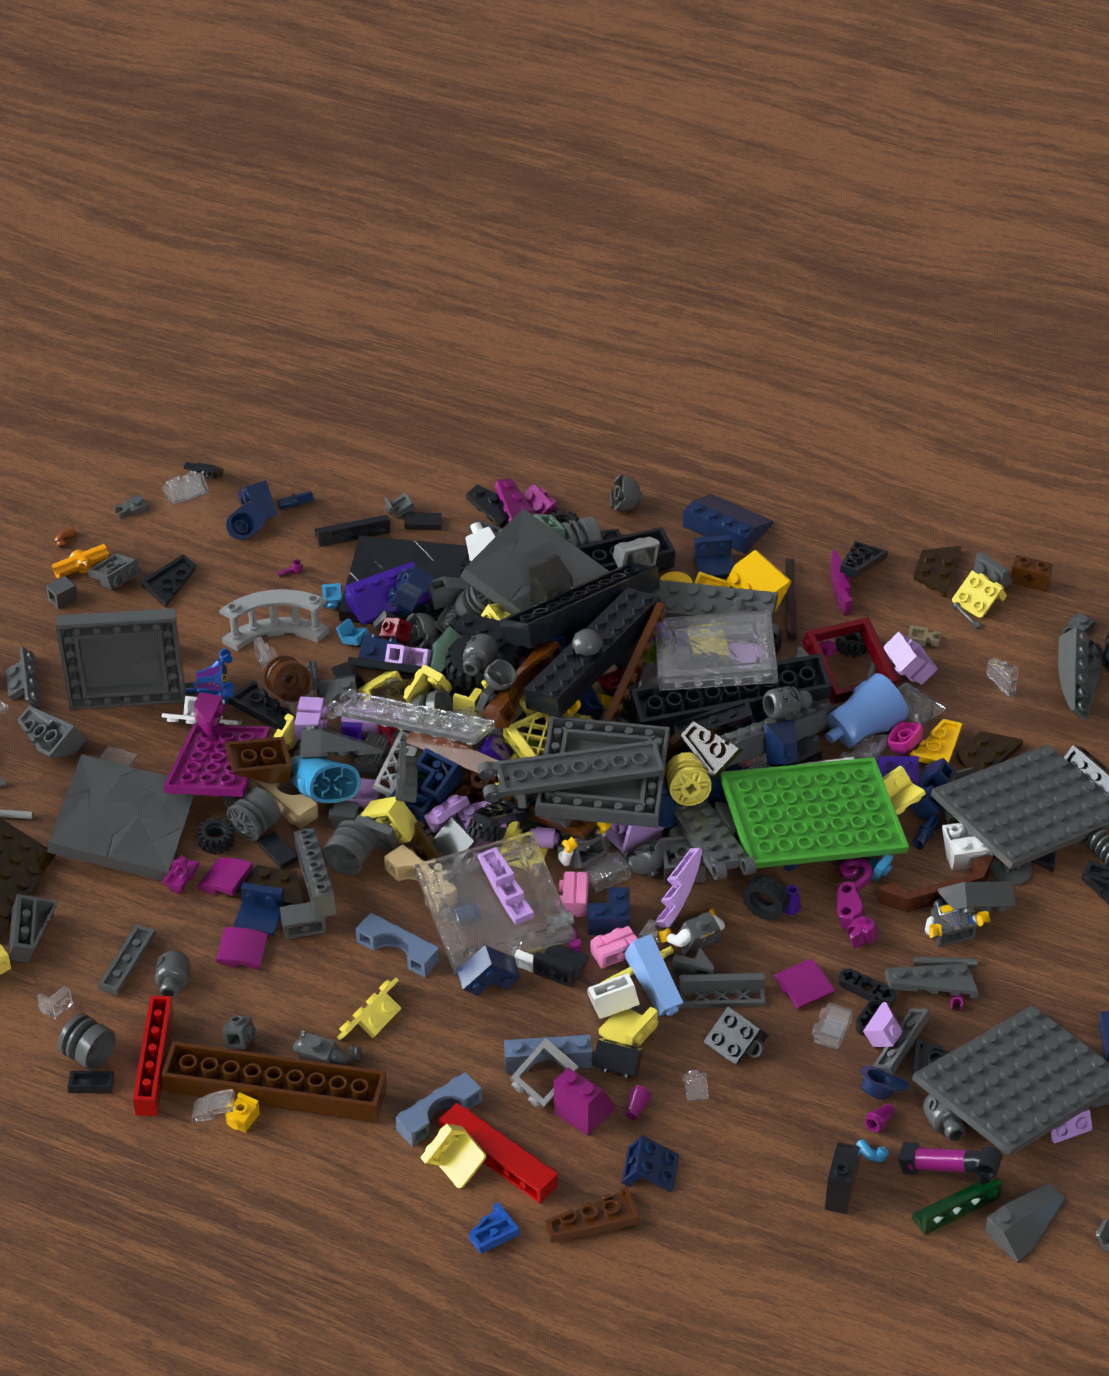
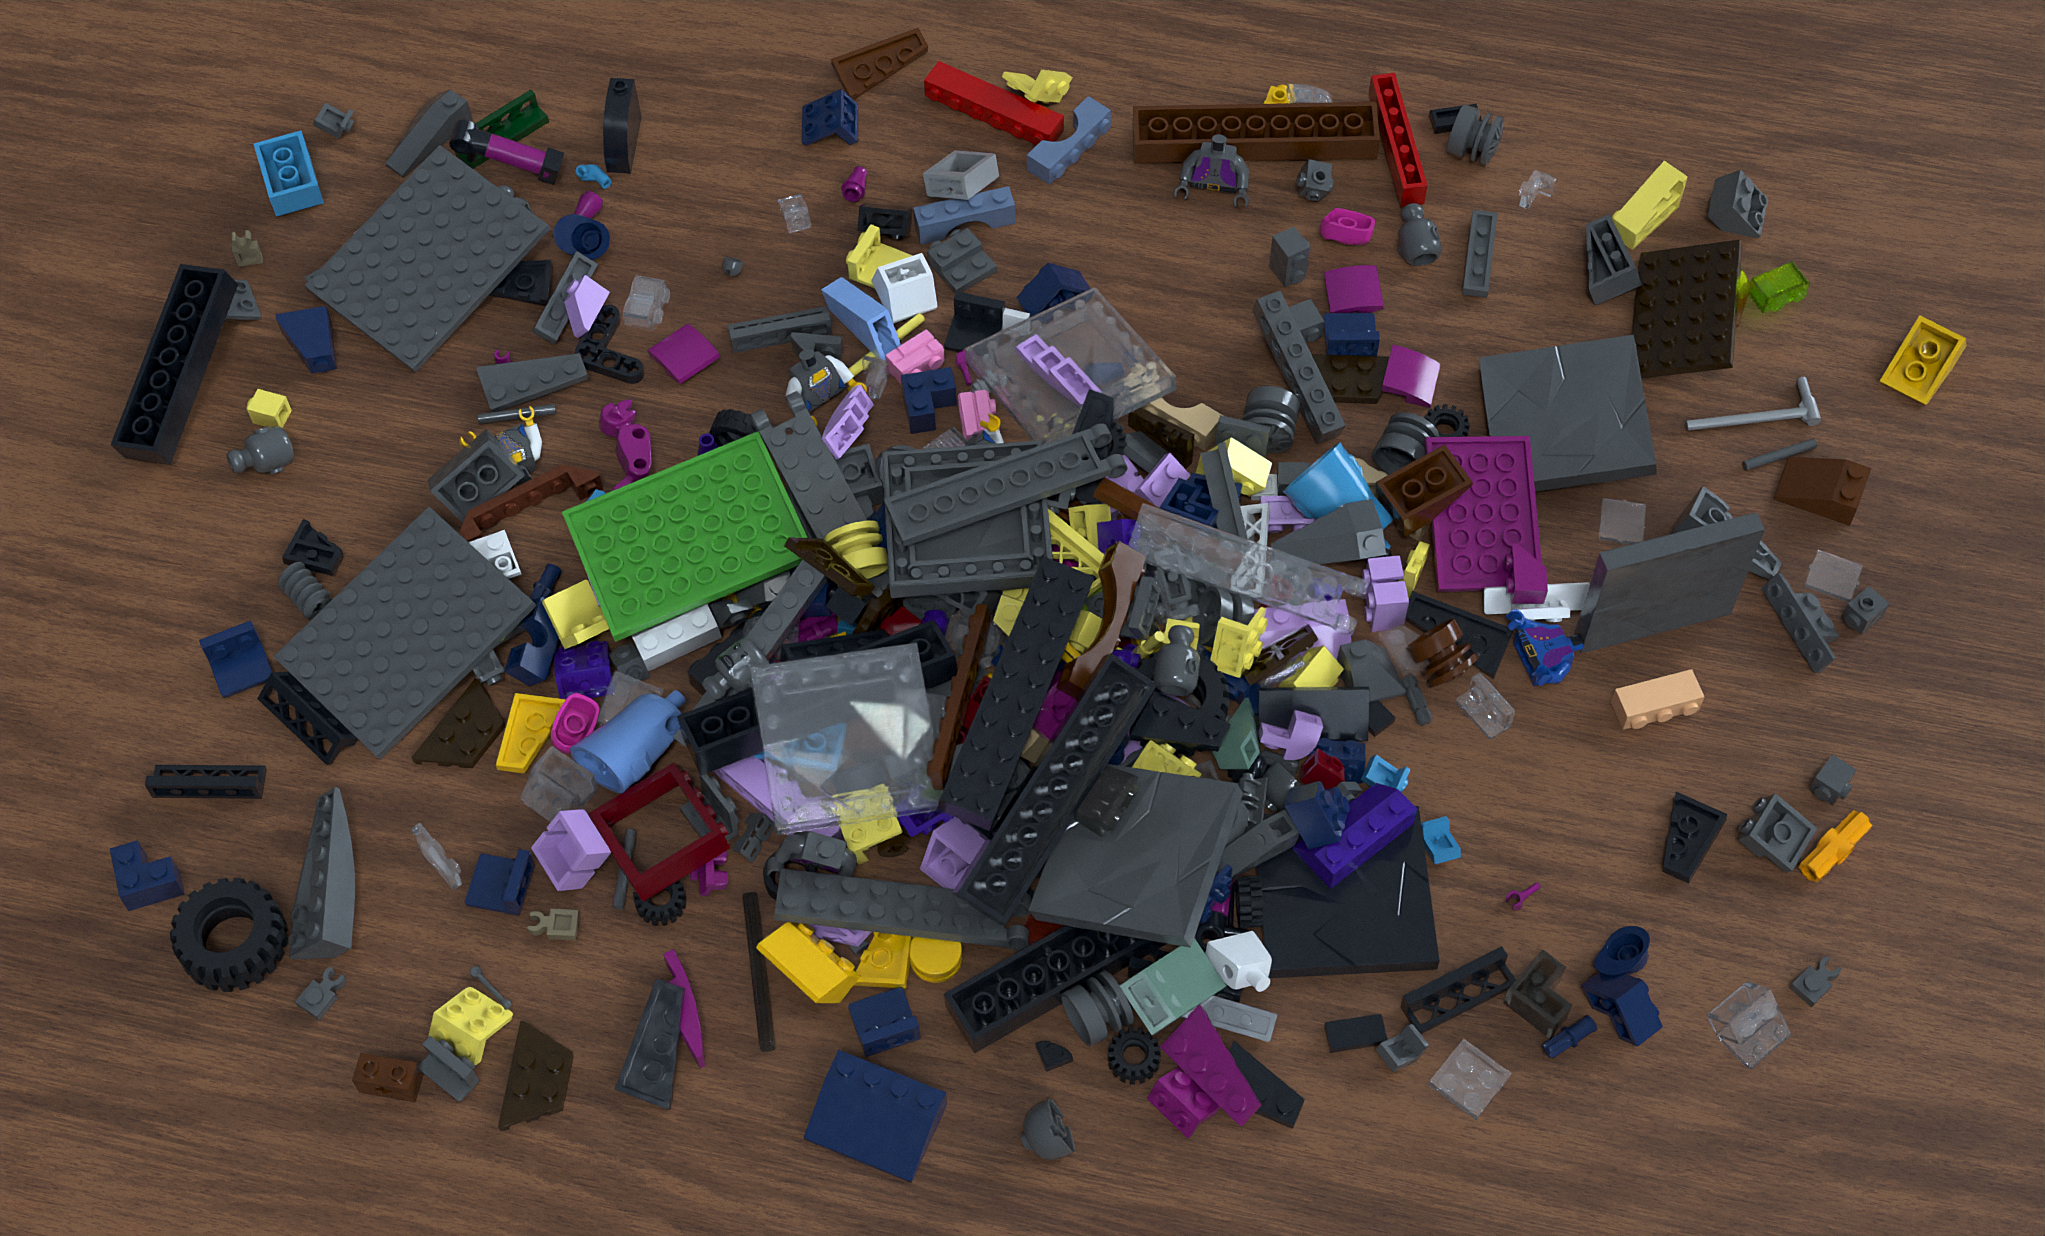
camera: 170 degrees right, 15 degrees up
(62, 535) = (1890, 896): dark orange arm -> none
(180, 874) = (1463, 363): magenta hips -> none
(207, 469) = (1731, 1070): black plate -> none
(227, 989) = (1347, 227): none -> dark pink piece
(274, 625) = (1500, 769): light grey fence -> none
(277, 850) = (1362, 426): black tile -> none
(286, 965) = (1289, 256): none -> dark grey brick
(306, 513) = (1534, 996): none -> clear smoke brick
(364, 489) = (1469, 1079): none -> clear plate
(376, 1014) = (1175, 236): light yellow bracket -> none
(377, 933) = (1198, 330): sand blue arch -> none
(493, 1230) = (979, 34): blue wing -> none
(500, 675) = (1134, 595): dark grey hair -> none
(559, 1020) = (960, 260): none -> dark grey plate
(580, 1101) = (908, 154): magenta slope -> none
(586, 642) = (1023, 658): dark grey hair -> none
(639, 551) = (998, 943): light grey slope -> none
(733, 1035) = (753, 275): bracket -> none
(781, 742) = (734, 618): dark blue slope -> none
(958, 662) = (500, 883): none -> dark blue bracket

